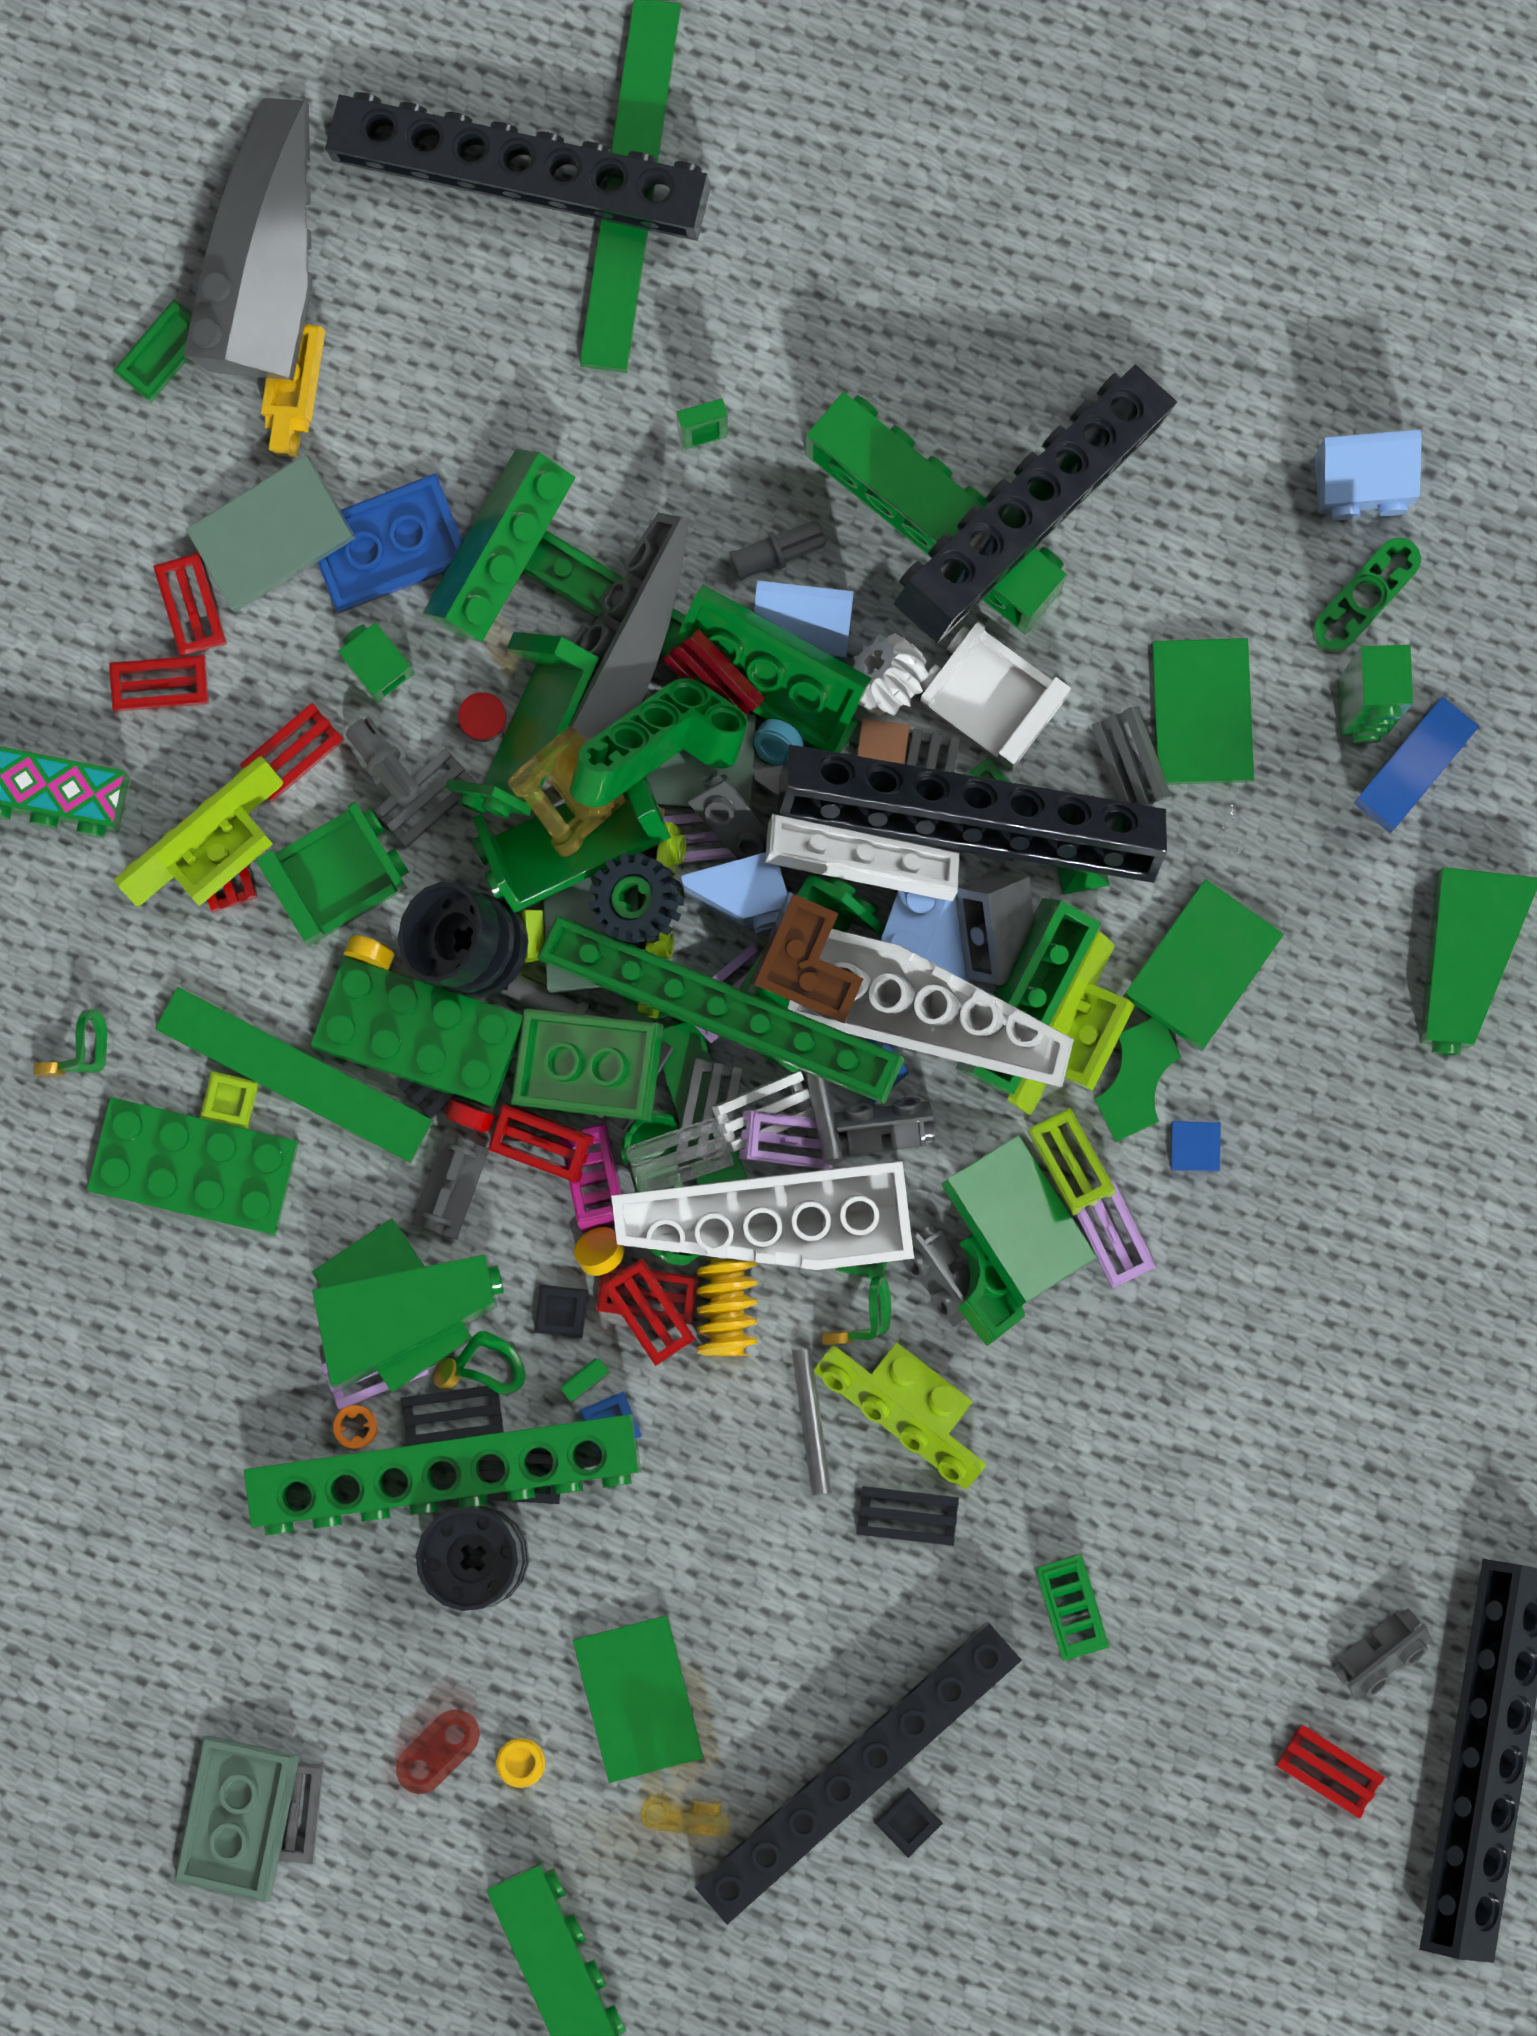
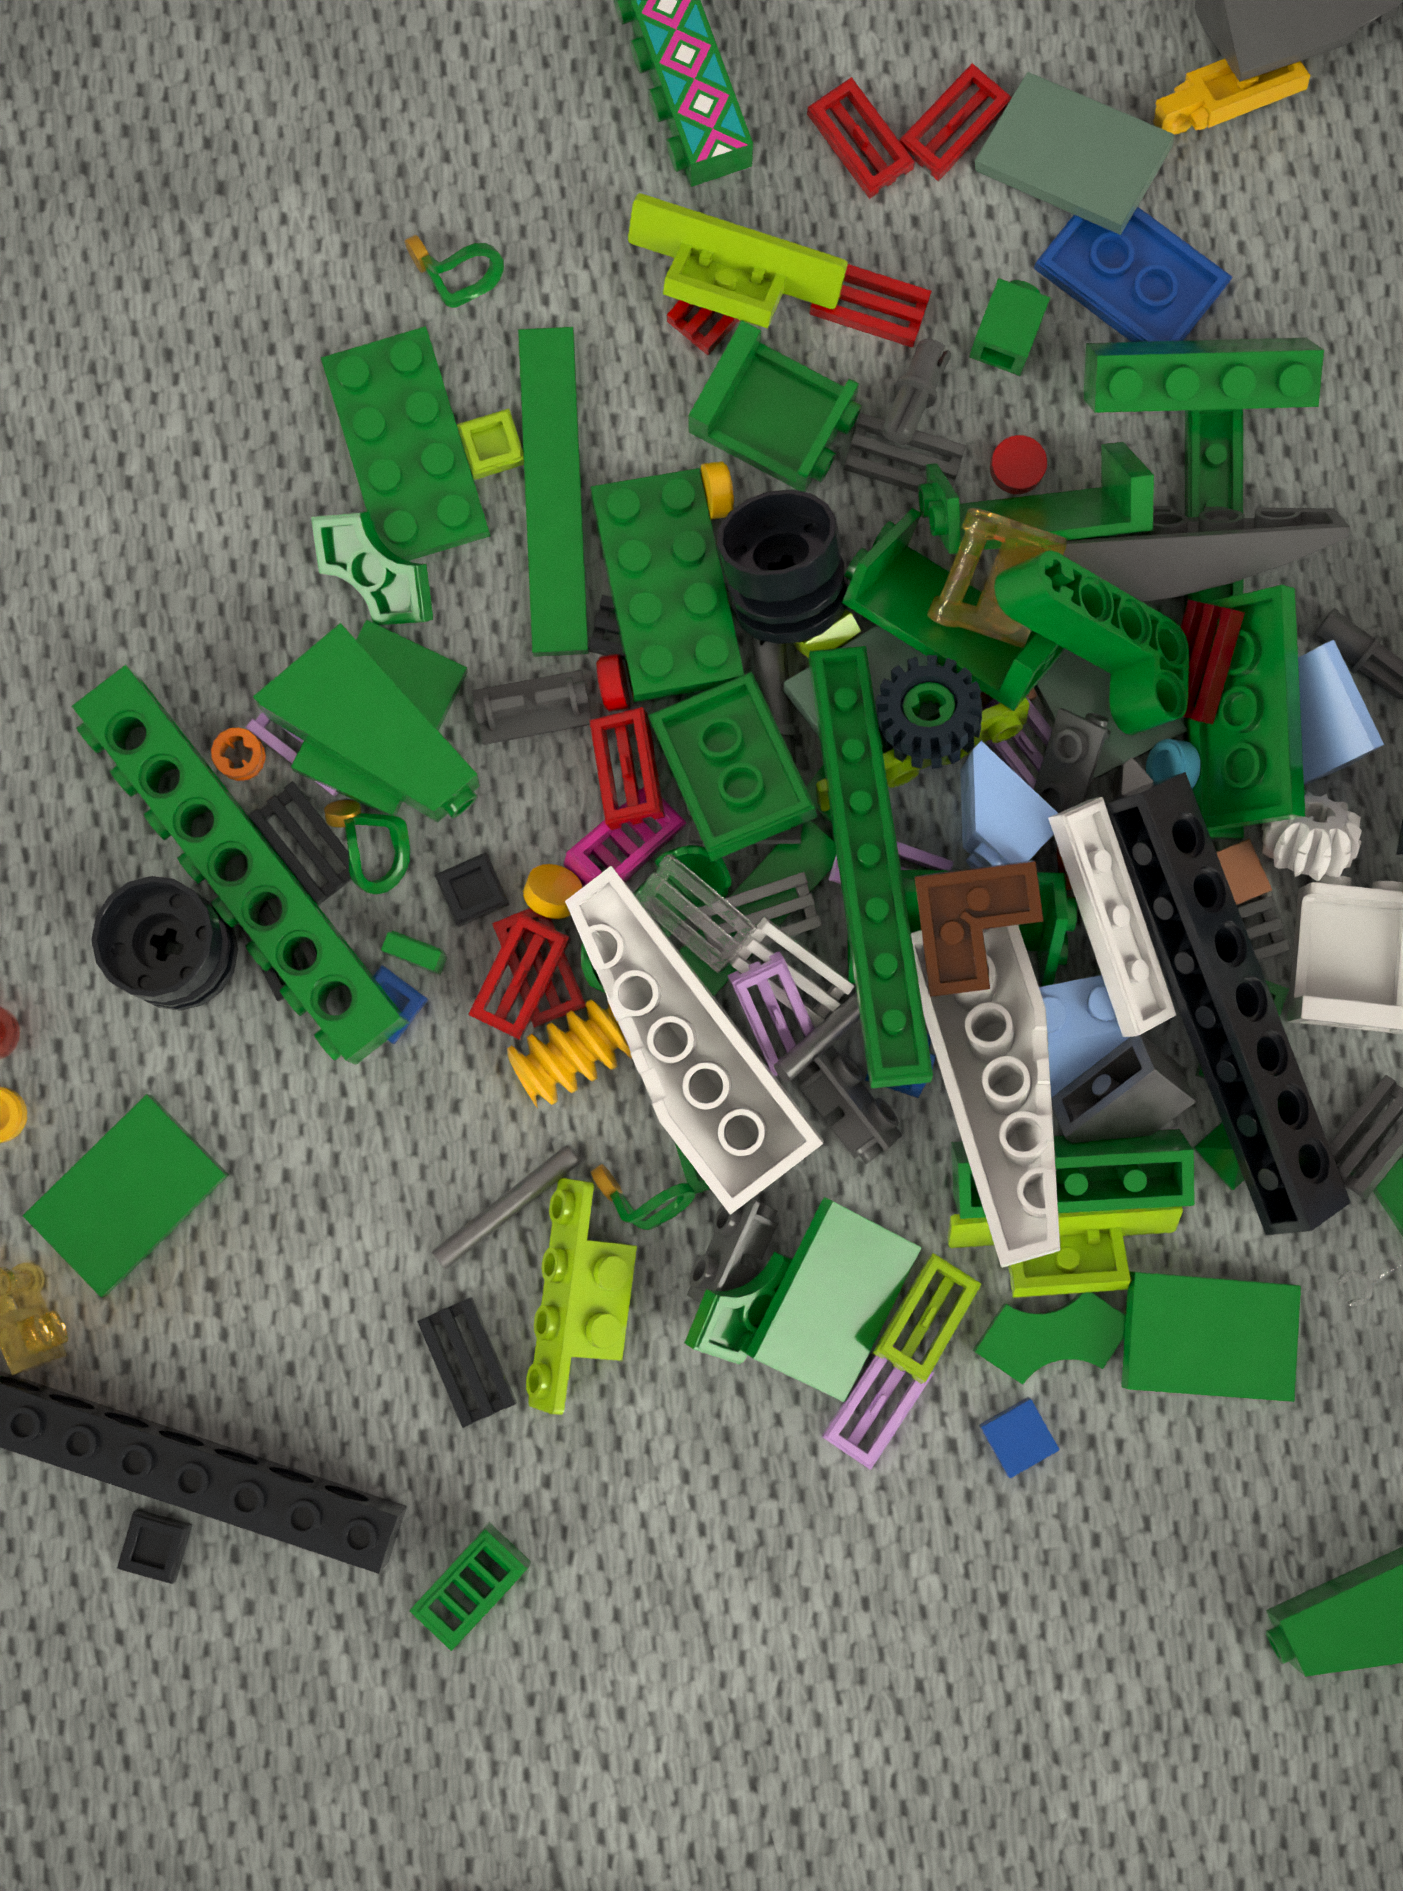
camera: 60 degrees right, 0 degrees up
(295, 1239) = (390, 585): none -> tile

